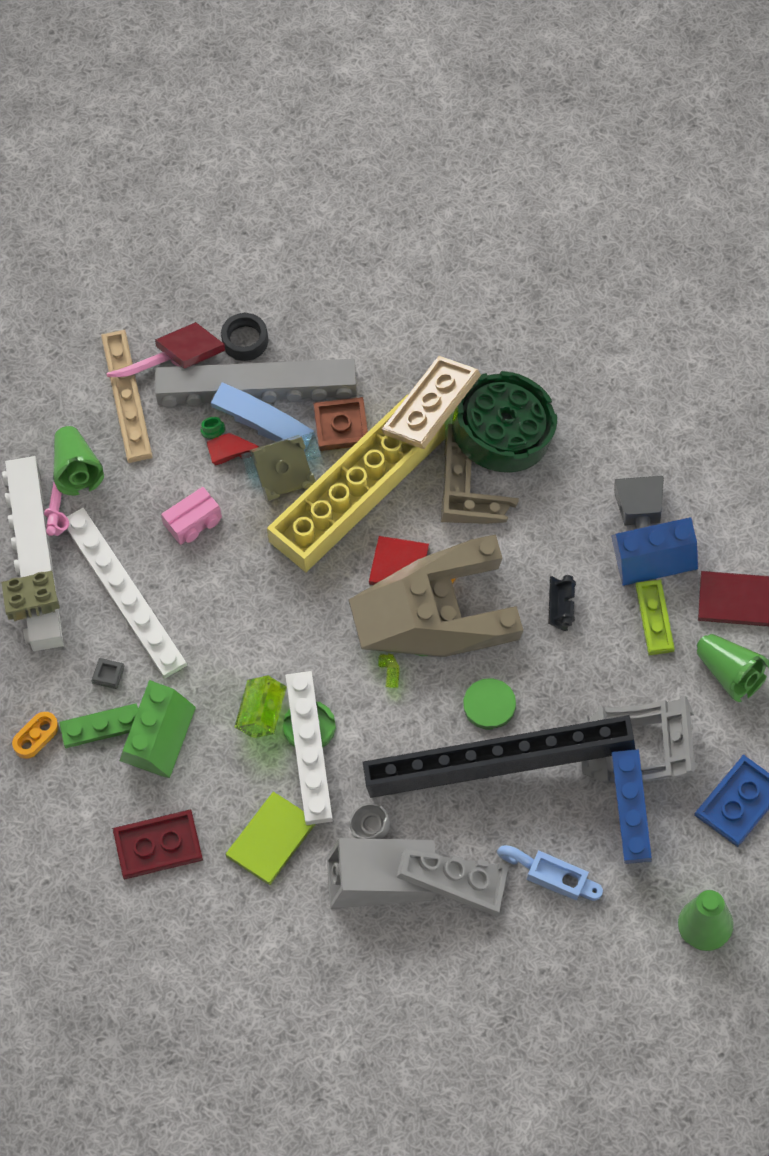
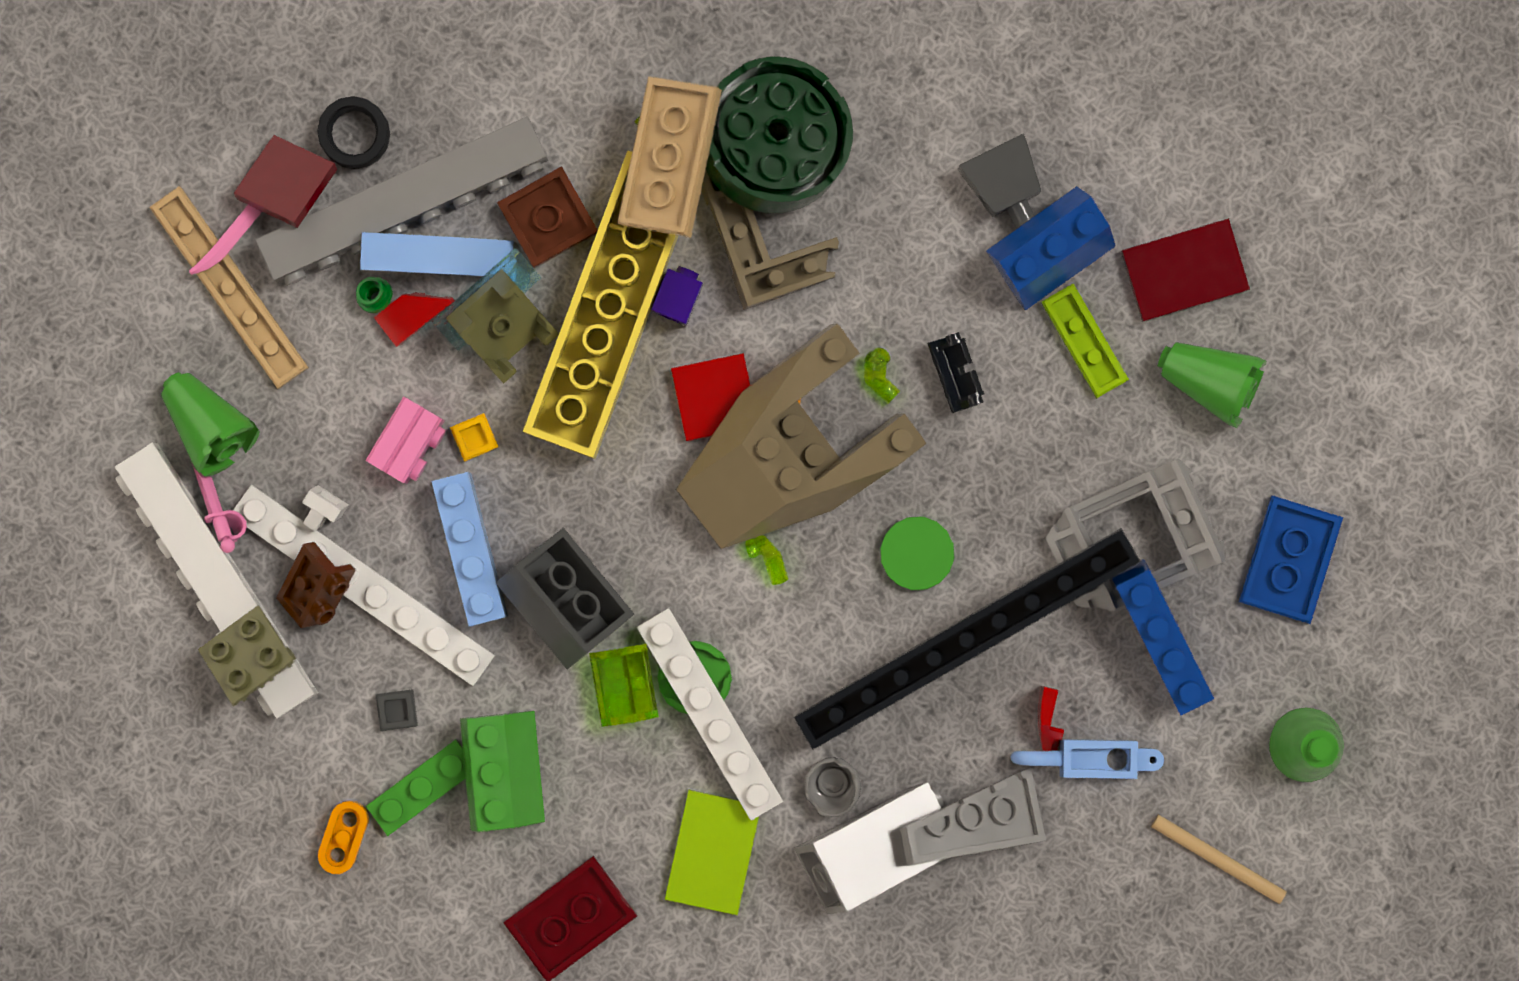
camera: 25 degrees left, 25 degrees up
(93, 576) = (314, 587): none -> reddish brown bracket
(119, 536) = (323, 507): none -> white tile
(200, 591) = (469, 548): none -> light blue brick
(235, 532) = (474, 437): none -> yellow tile
(247, 637) = (564, 598): none -> dark grey brick
(401, 495) = (678, 295): none -> dark purple brick
(509, 584) = (875, 374): none -> clear neon green arm
(536, 826) = (1048, 735): none -> red slope
(614, 975) = (1218, 859): none -> tan bar

